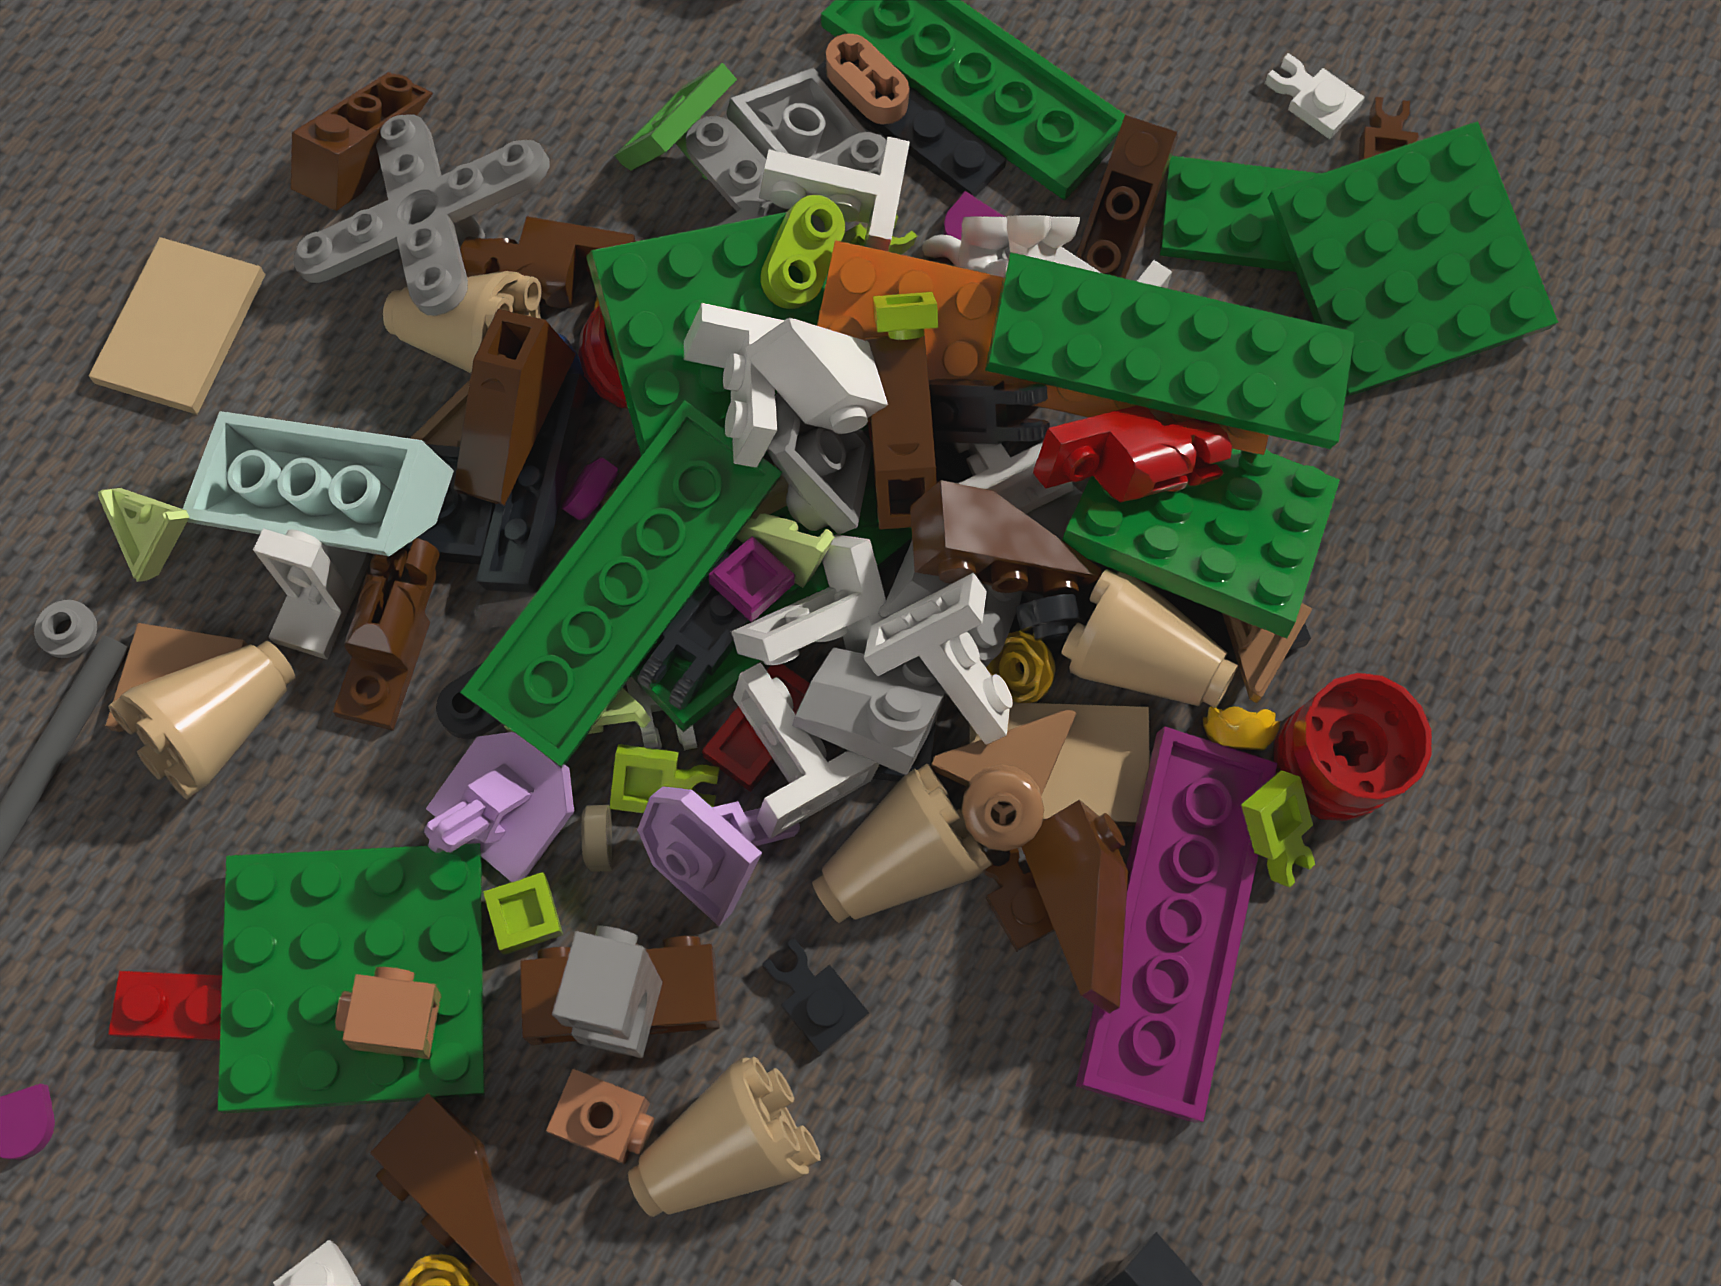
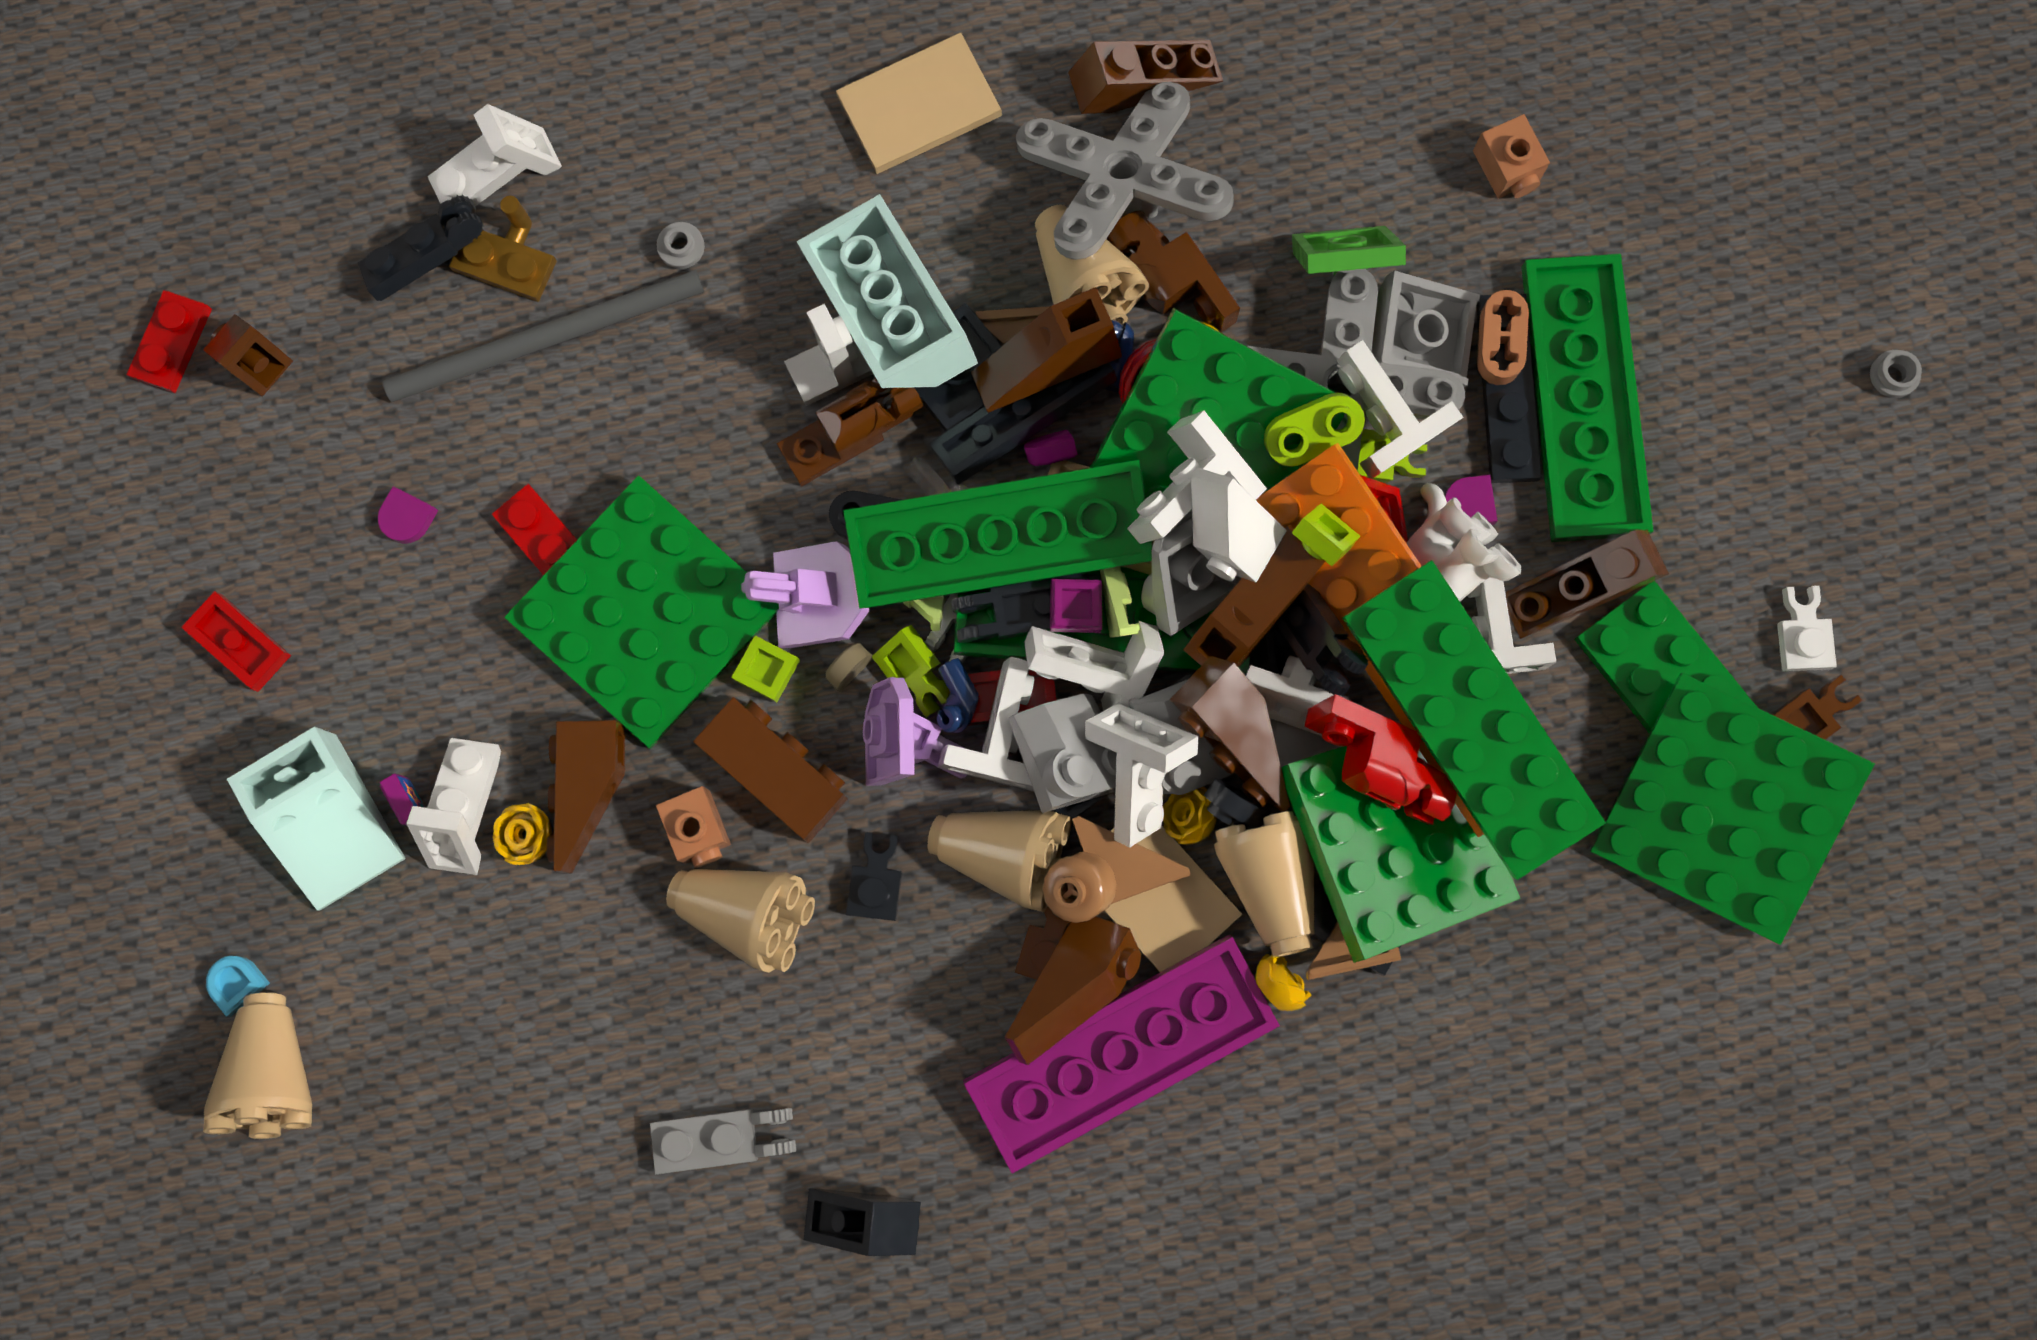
camera: 55 degrees right, 10 degrees up
(143, 529) = (777, 222): yellowish green tile -> none
(165, 650) = (712, 322): medium nougat tile -> none
(203, 713) = (705, 376): tan cone -> none
(389, 1014) = (635, 657): nougat brick -> none
(609, 991) = (746, 771): light grey arch -> none
(731, 762) = (961, 700): none -> dark blue arm
(1276, 821) = (1236, 1059): lime plate -> none
(1372, 723) = (1359, 1069): red wheel -> none

